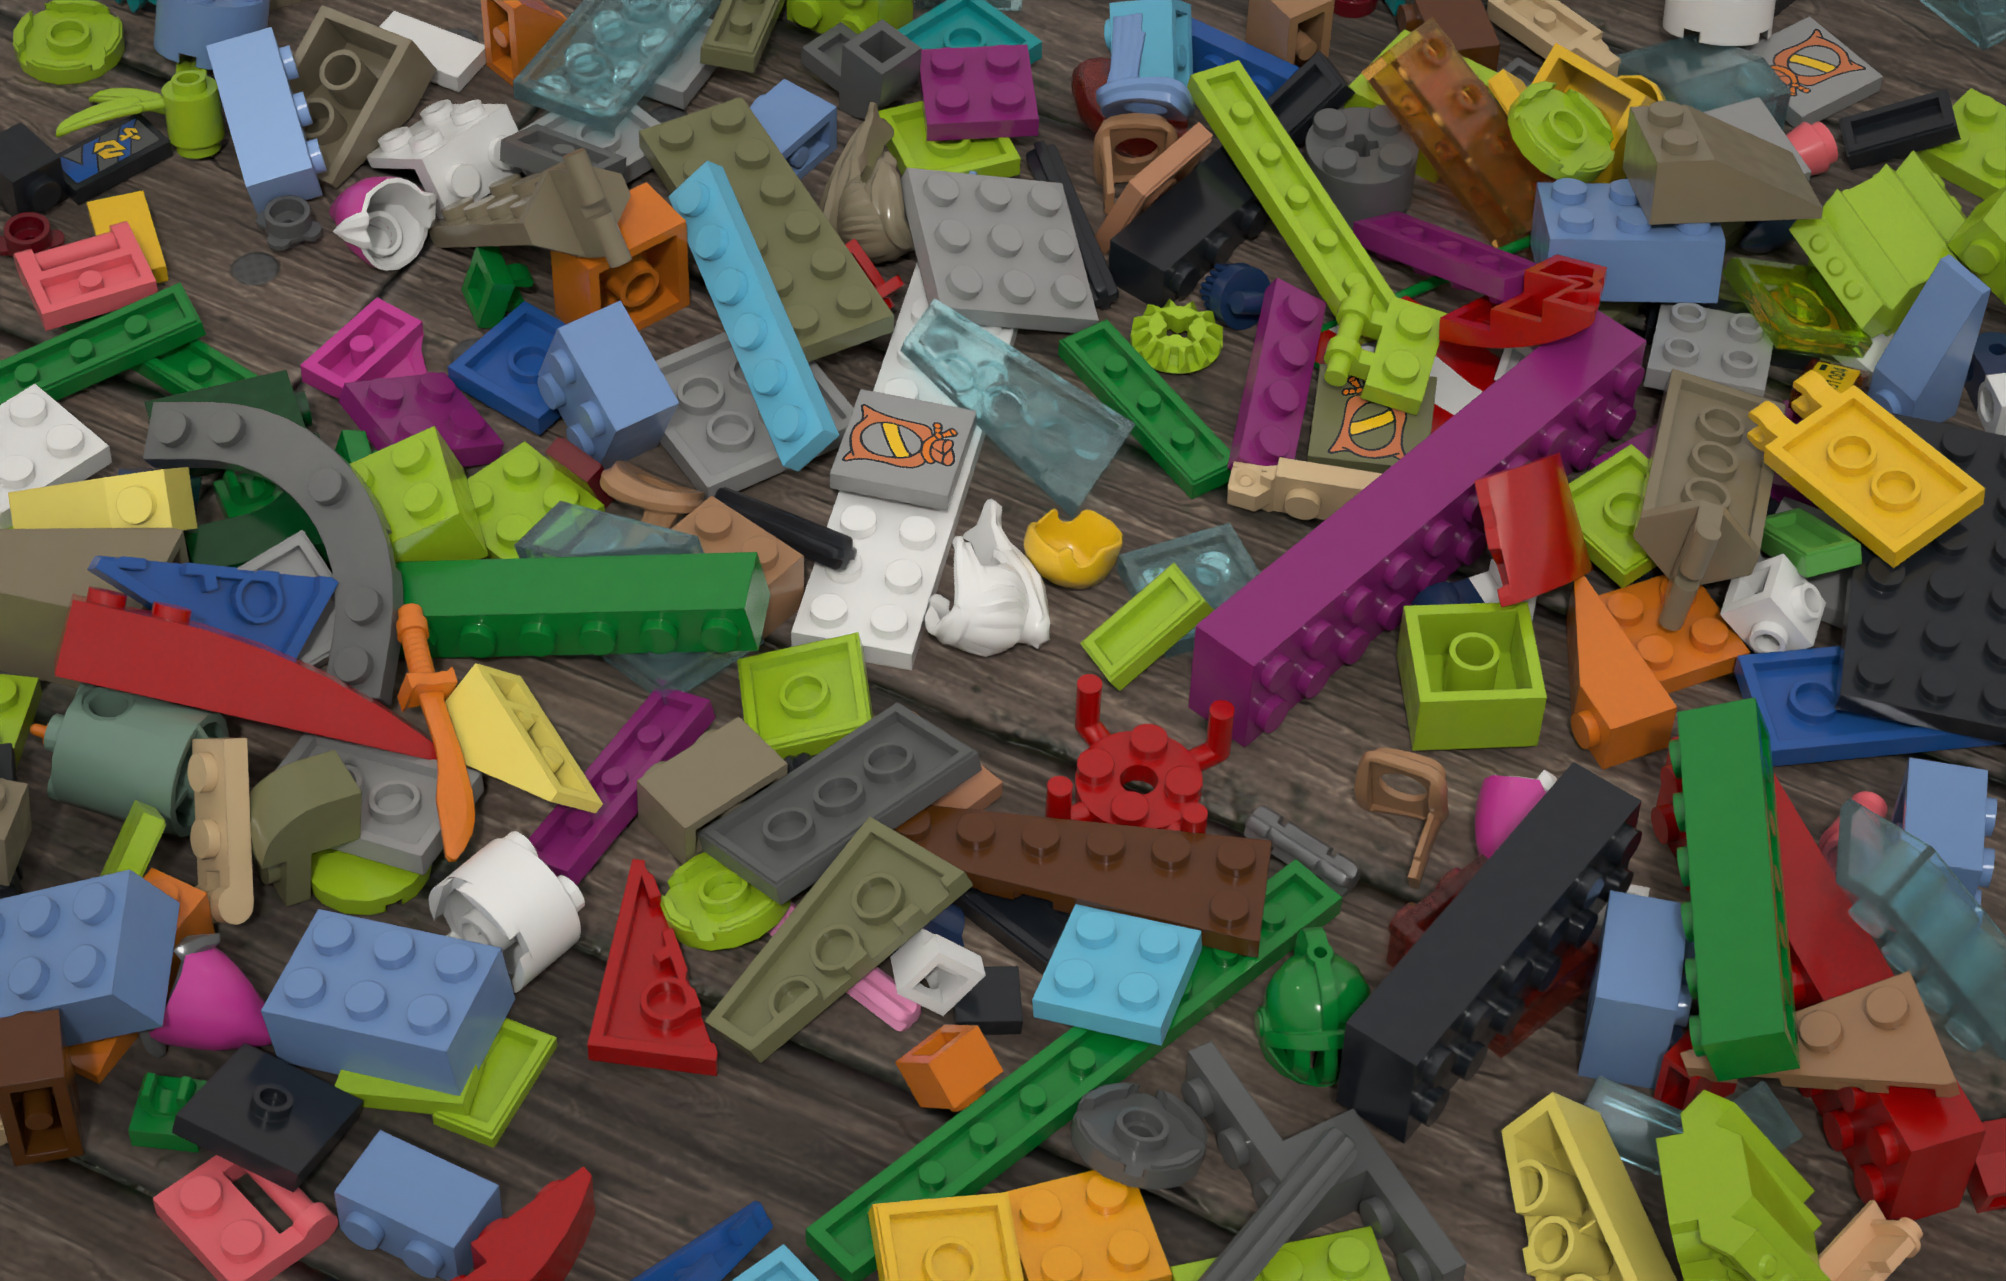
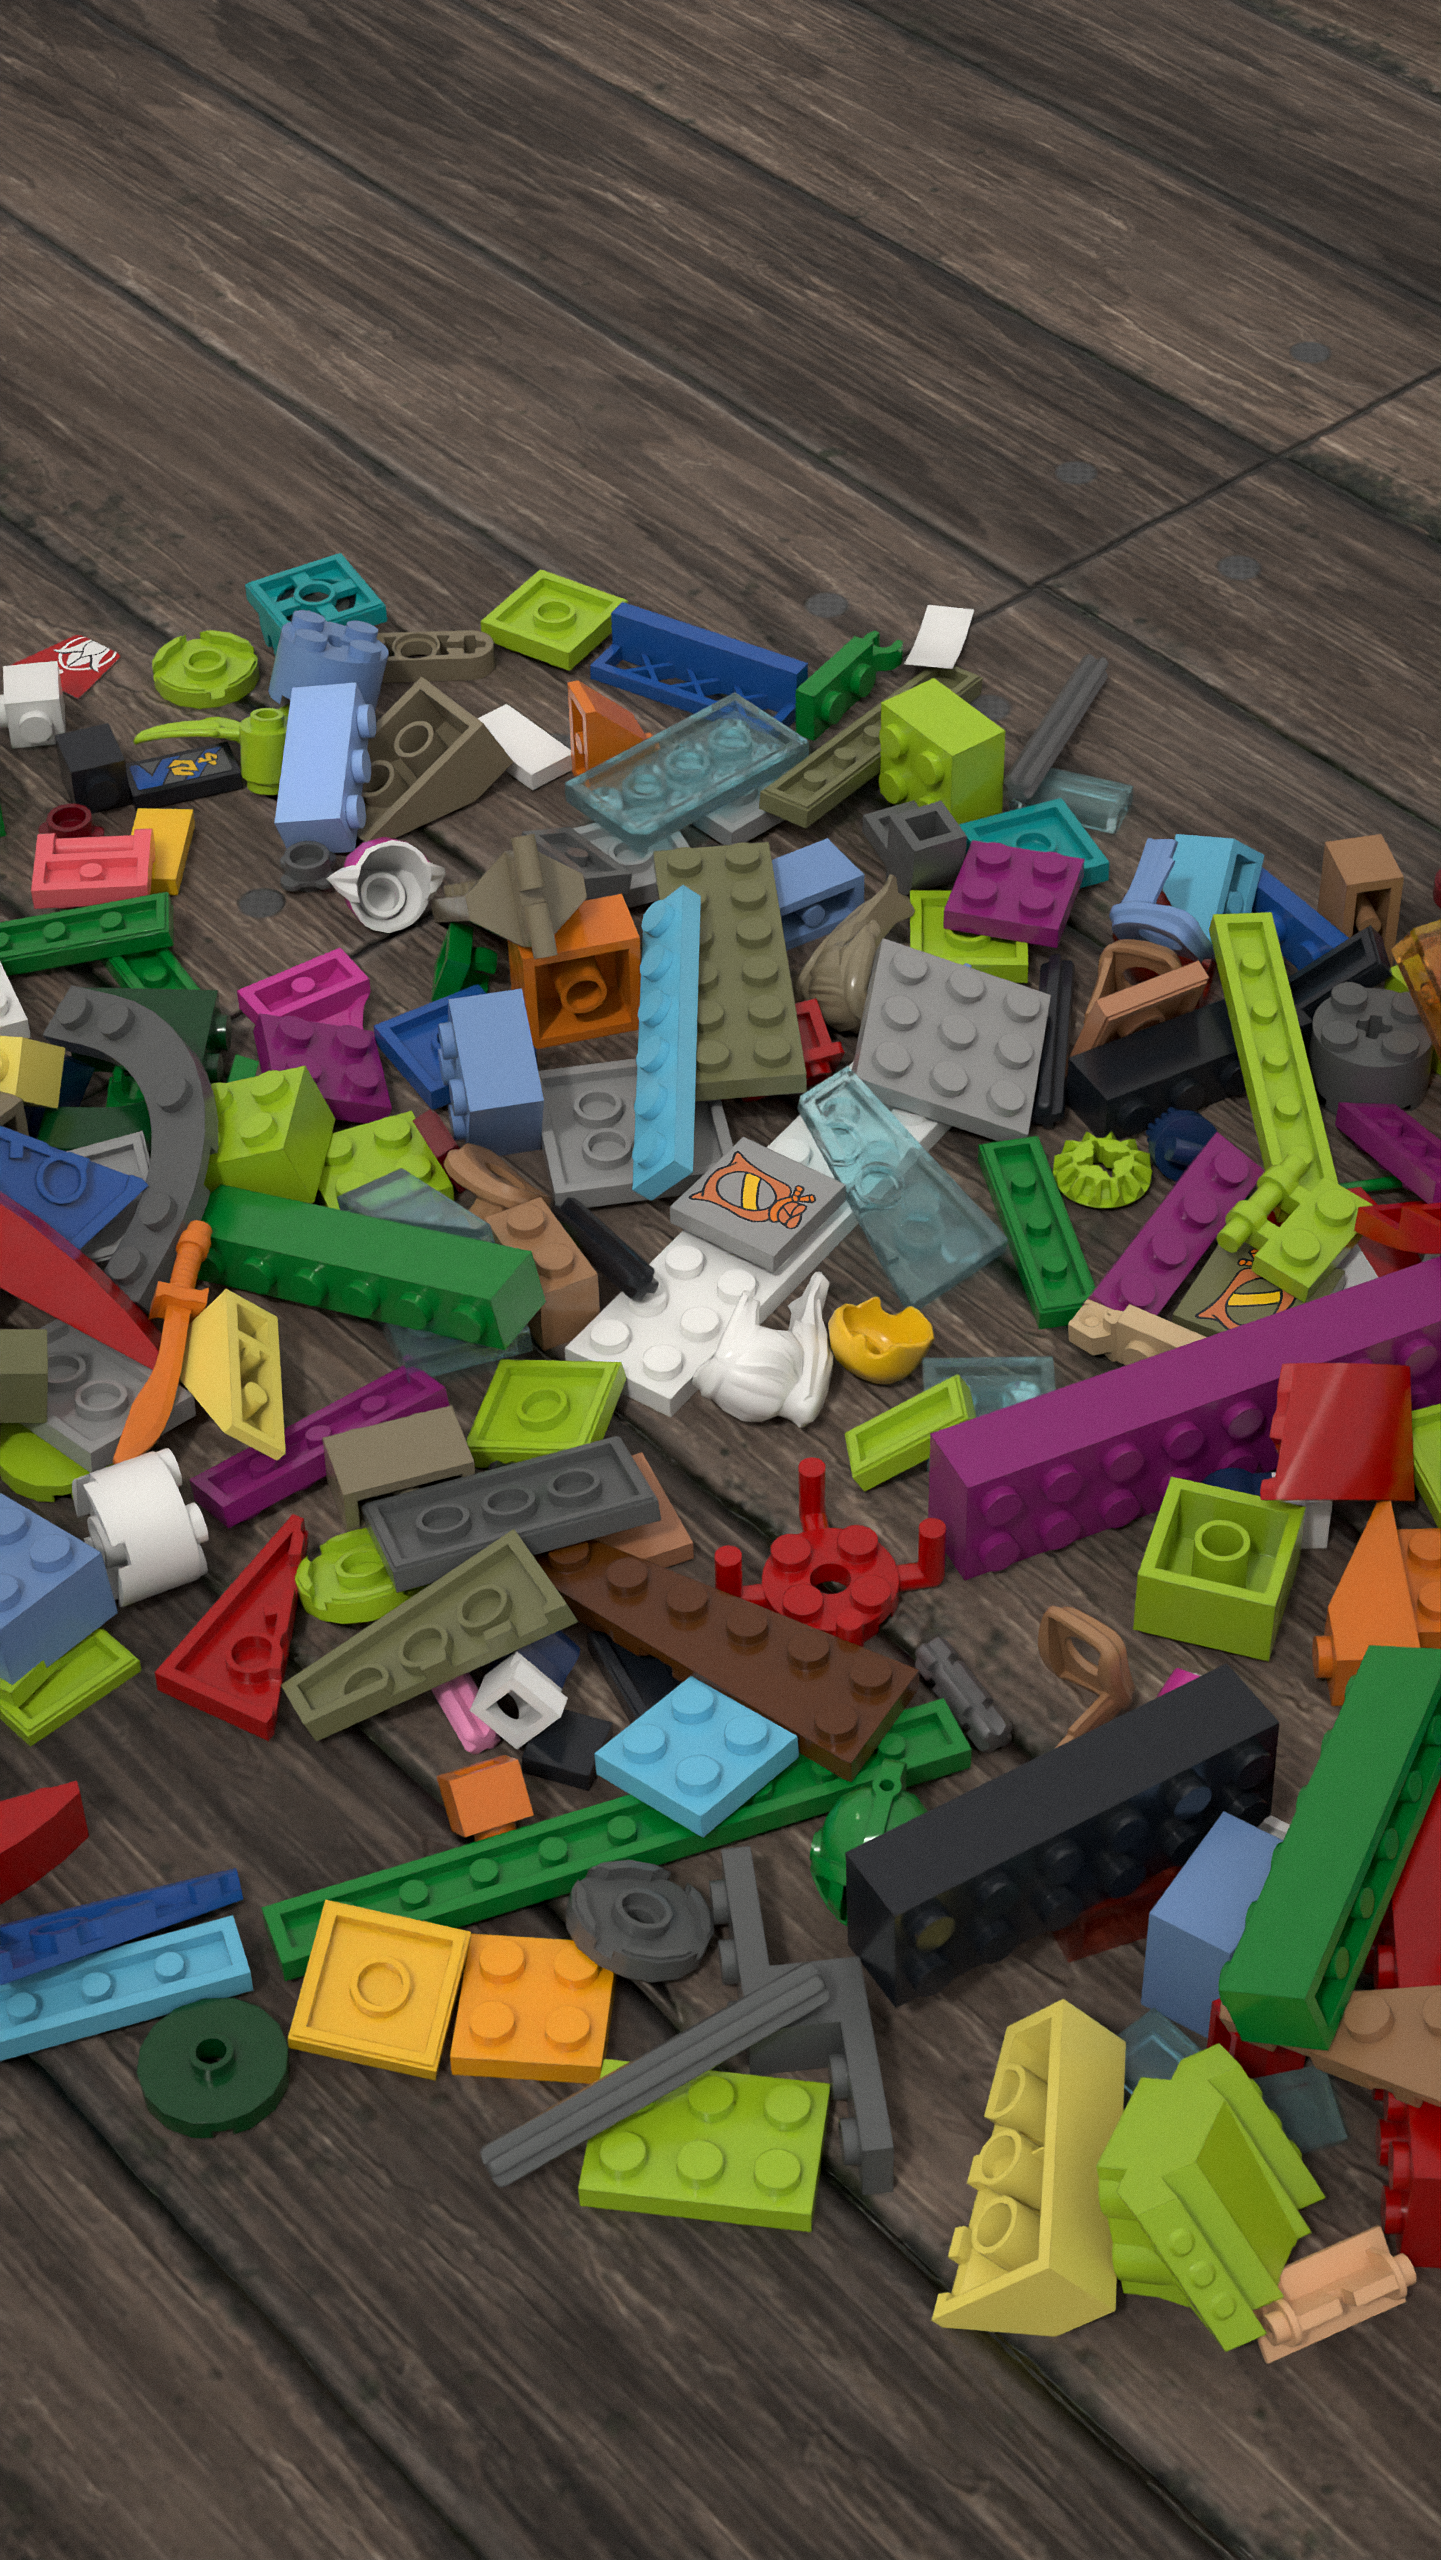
camera: 25 degrees right, 5 degrees down
(451, 149) = (477, 836): white bracket -> none

